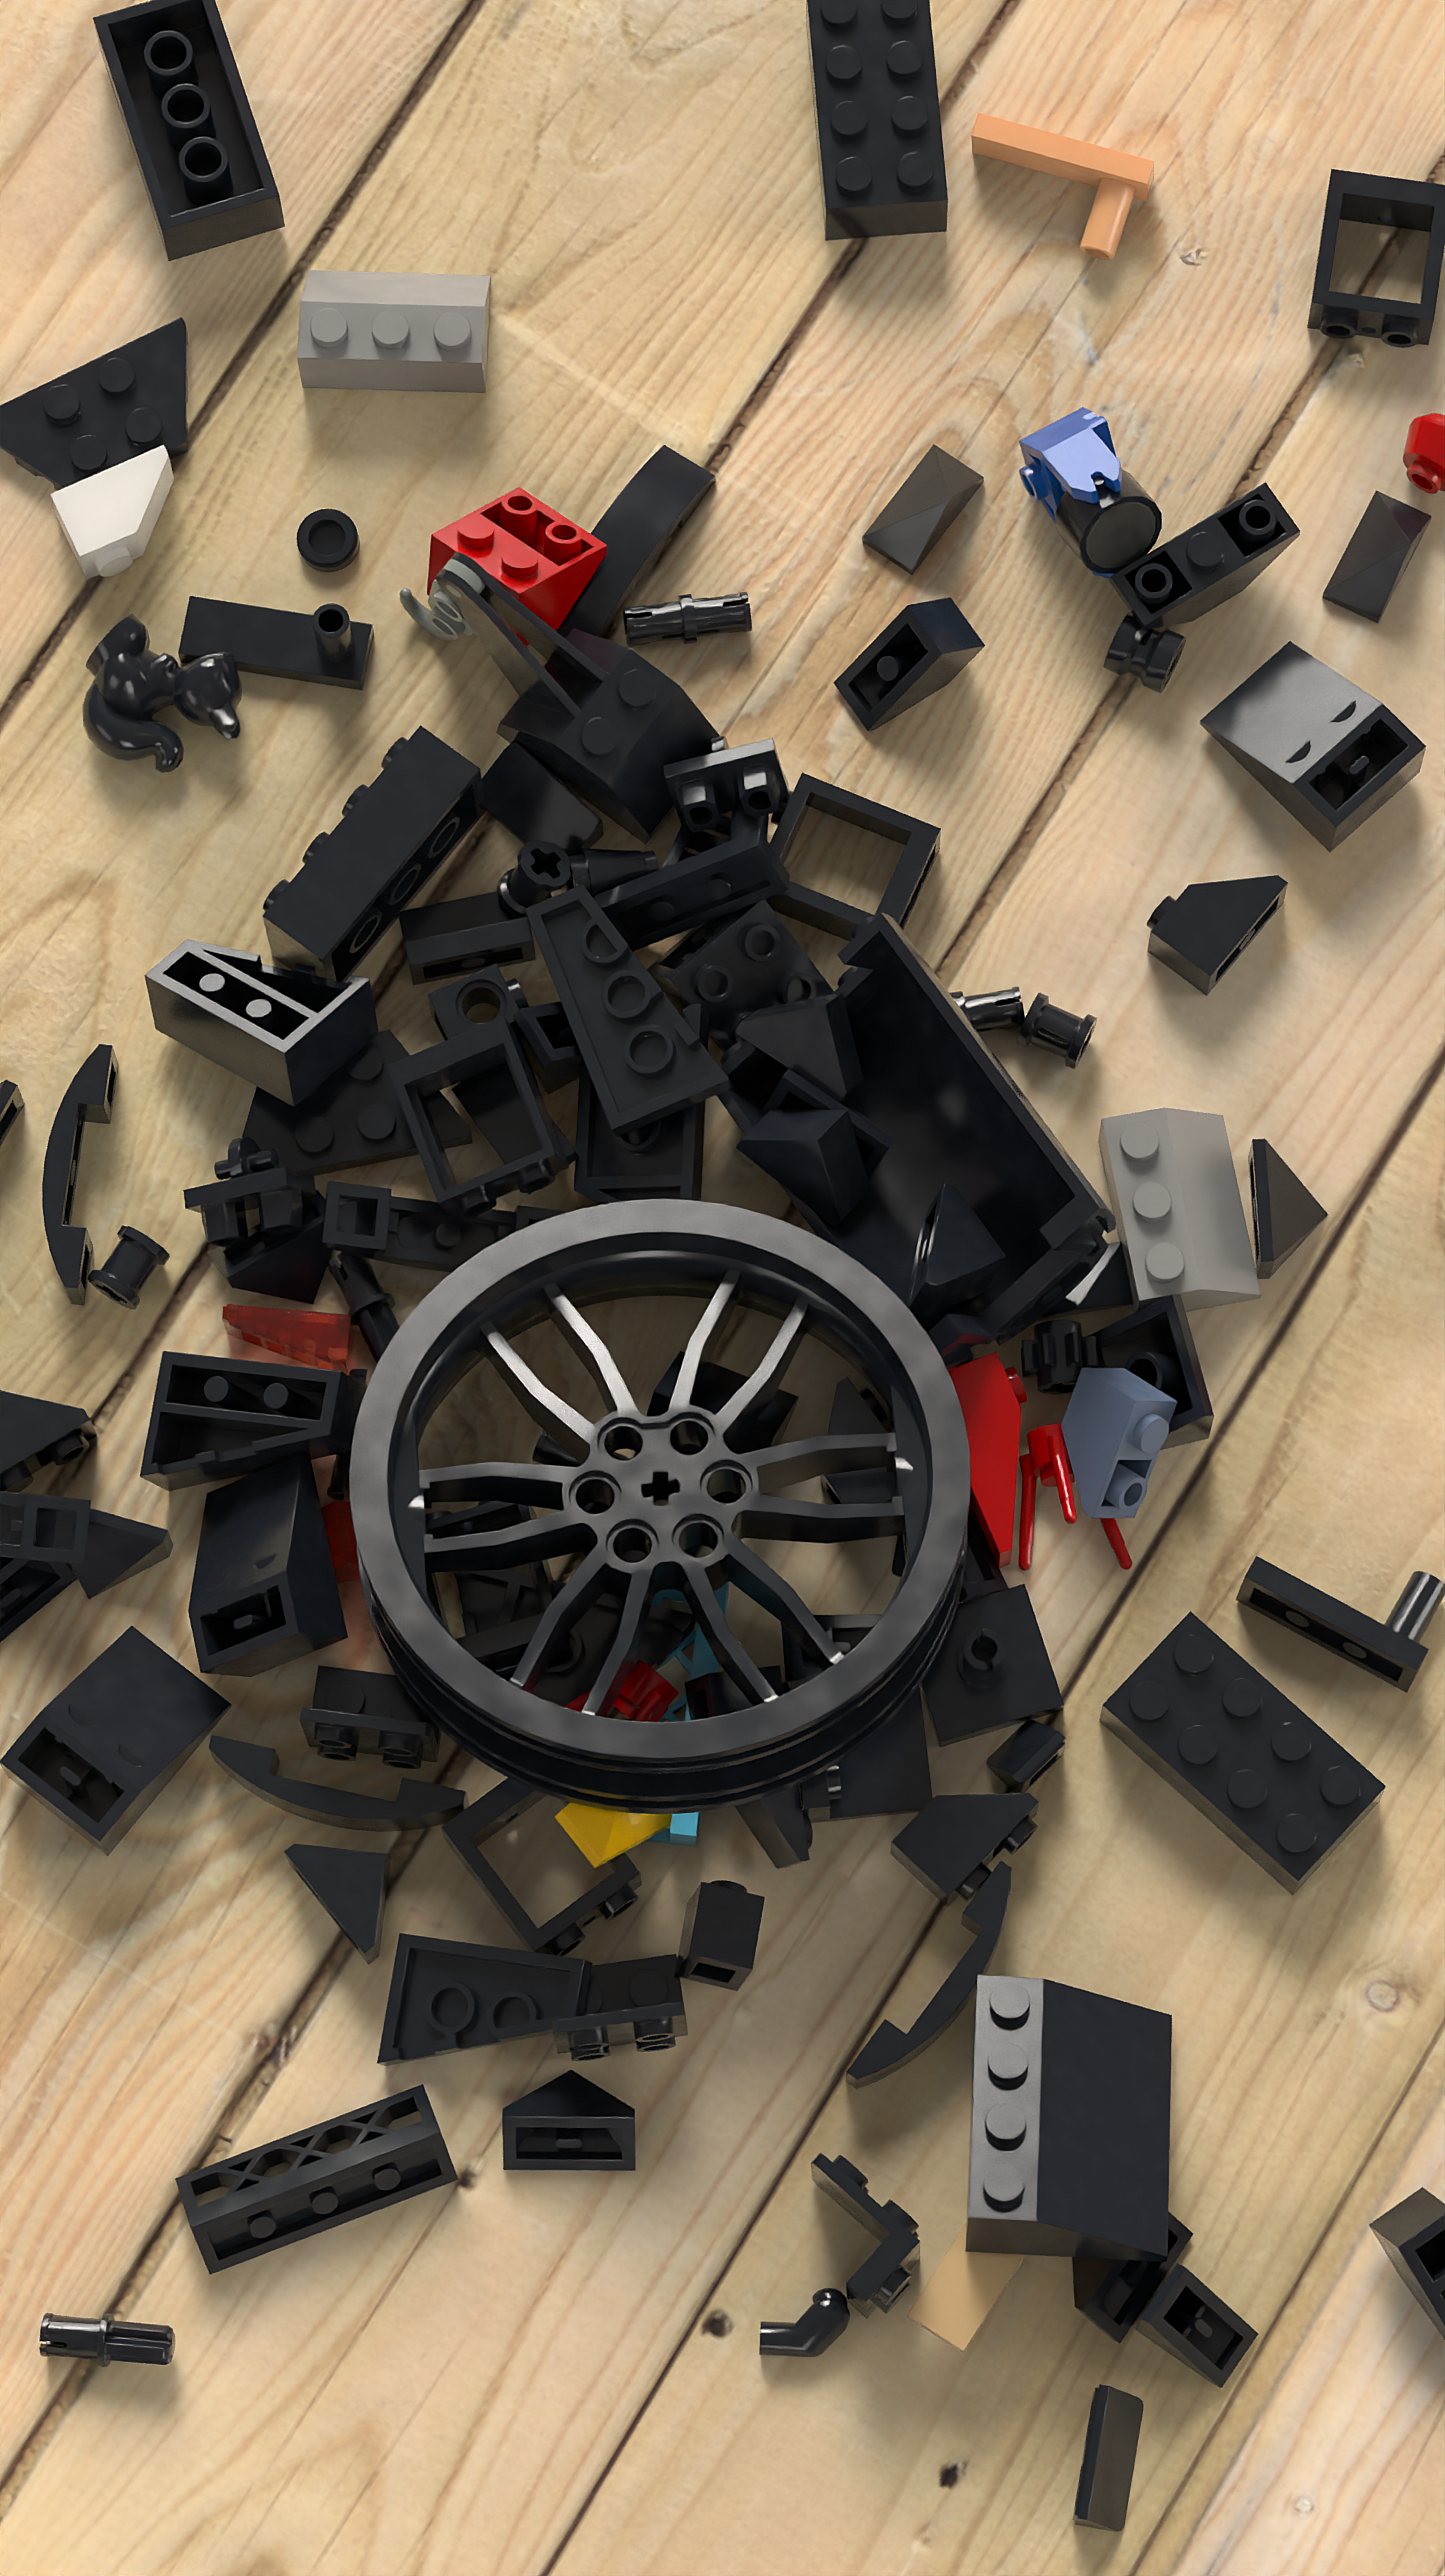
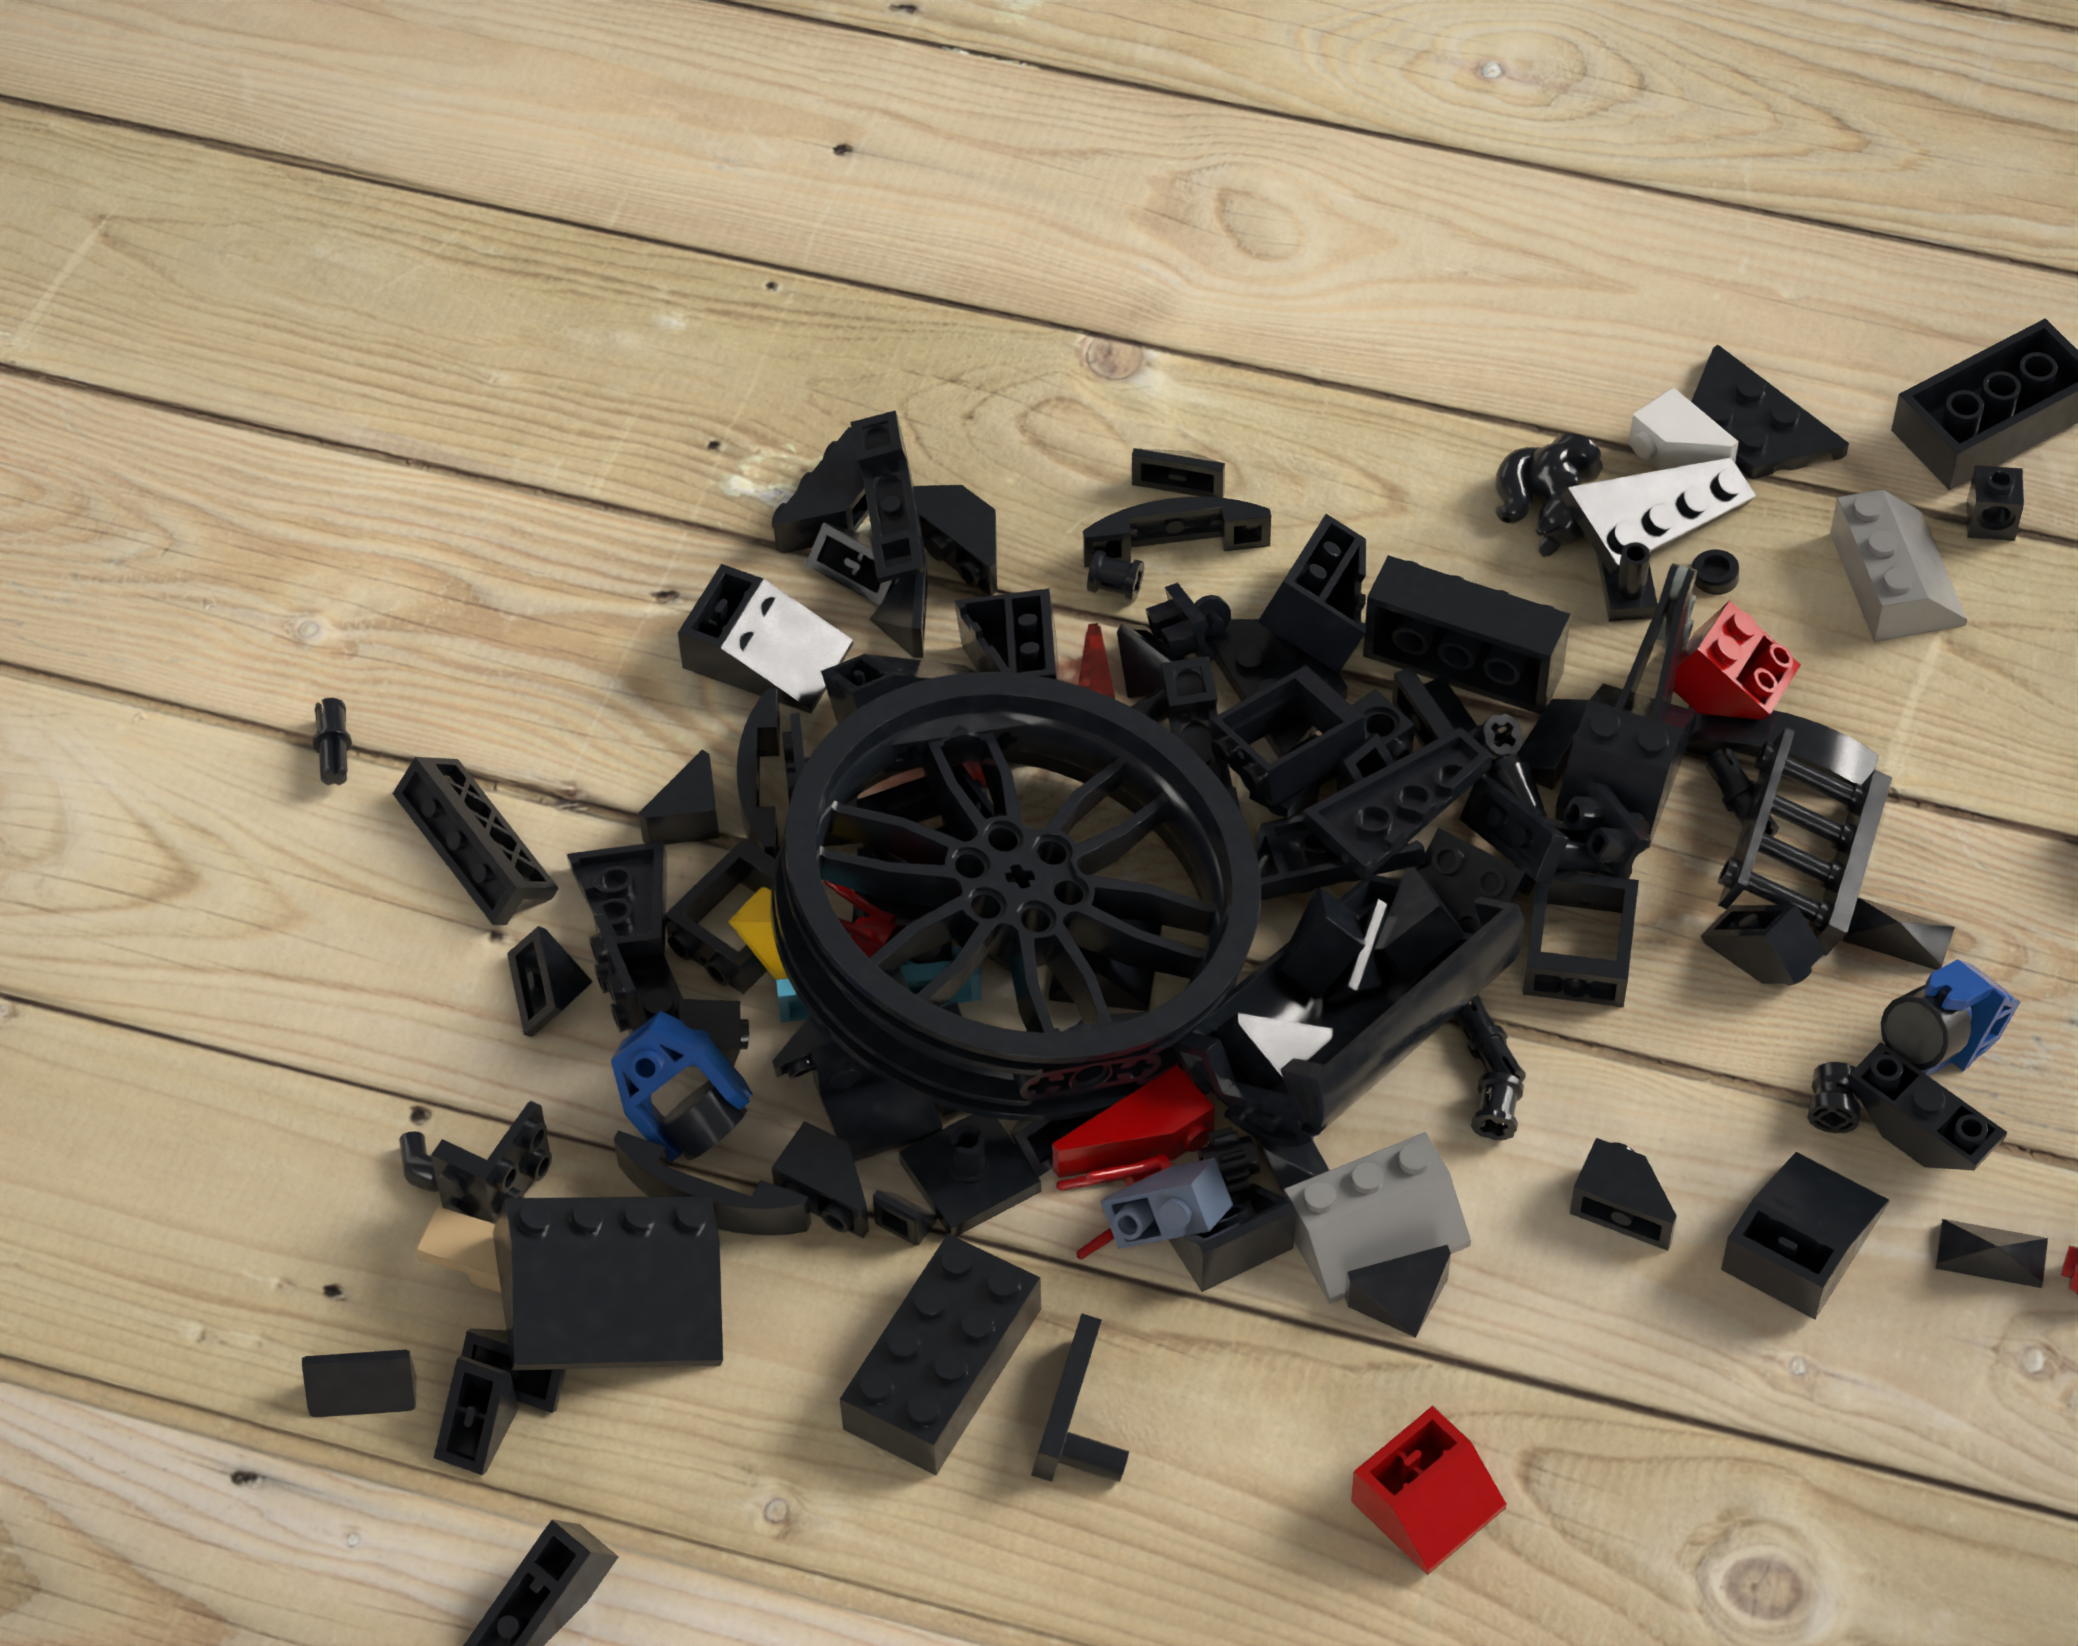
camera: 75 degrees right, 20 degrees down
(238, 589) = (1655, 506): none -> wing
(337, 180) = (1995, 503): none -> black brick
(813, 1980) = (654, 1057): none -> blue piece
(816, 524) = (1851, 839): none -> black fence

